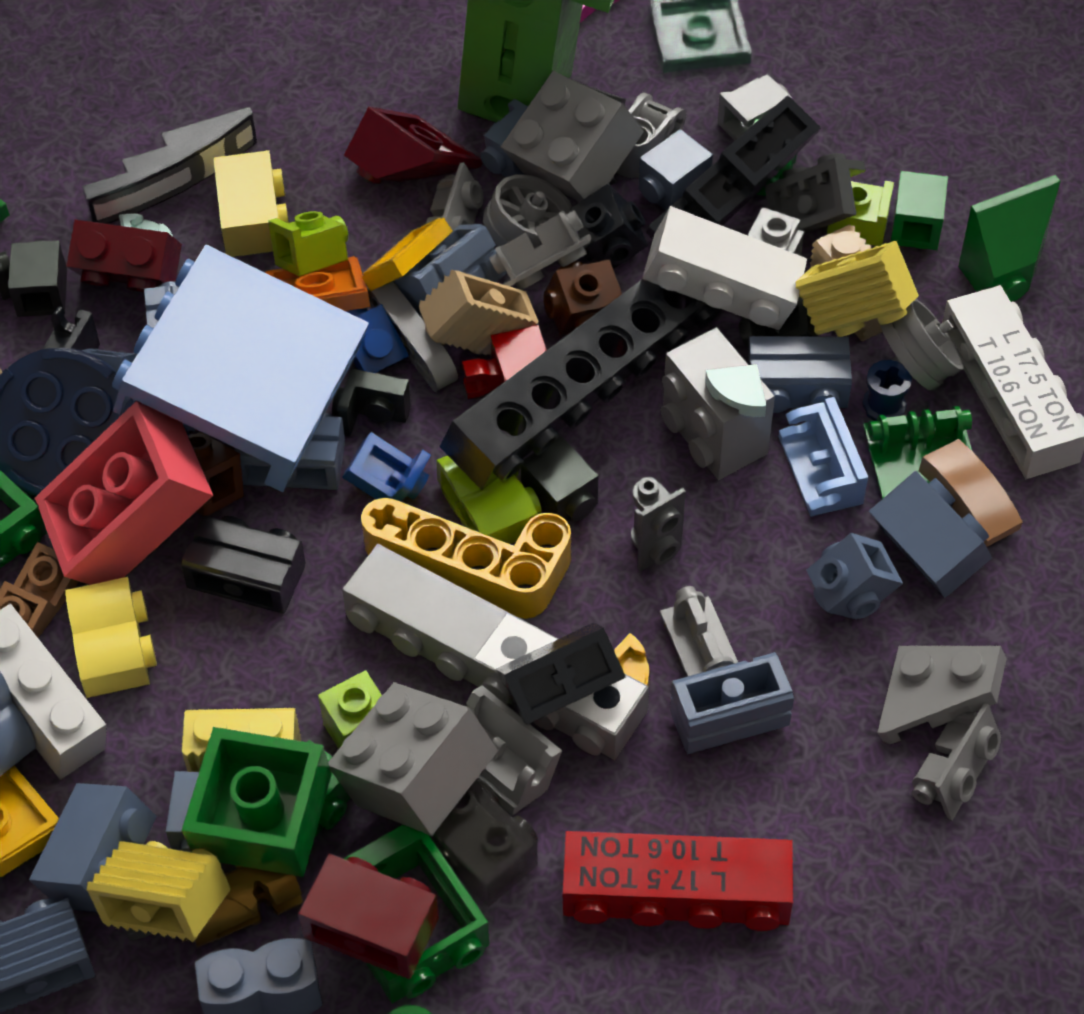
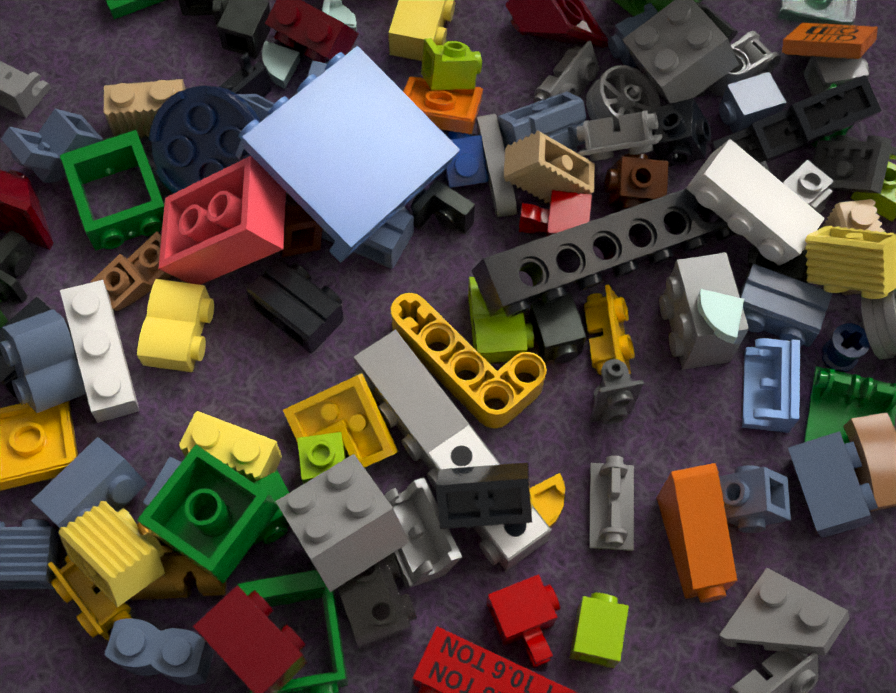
camera: 20 degrees right, 10 degrees up
(103, 305) = (280, 62): none -> light aqua tile
(161, 974) = (97, 609): none -> yellow hinge
(351, 647) = (348, 410): none -> yellow plate
(386, 471) = (431, 270): blue bracket -> none
(406, 253) = (515, 101): yellow tile -> none
(610, 450) = (608, 316): none -> yellow hinge
(657, 789) = (522, 613): none -> red brick
(731, 703) = (612, 567): sand blue brick -> none
(732, 75) = (829, 40): none -> orange tile
(746, 775) = (599, 630): none -> lime brick
(808, 630) = (698, 532): none -> orange slope

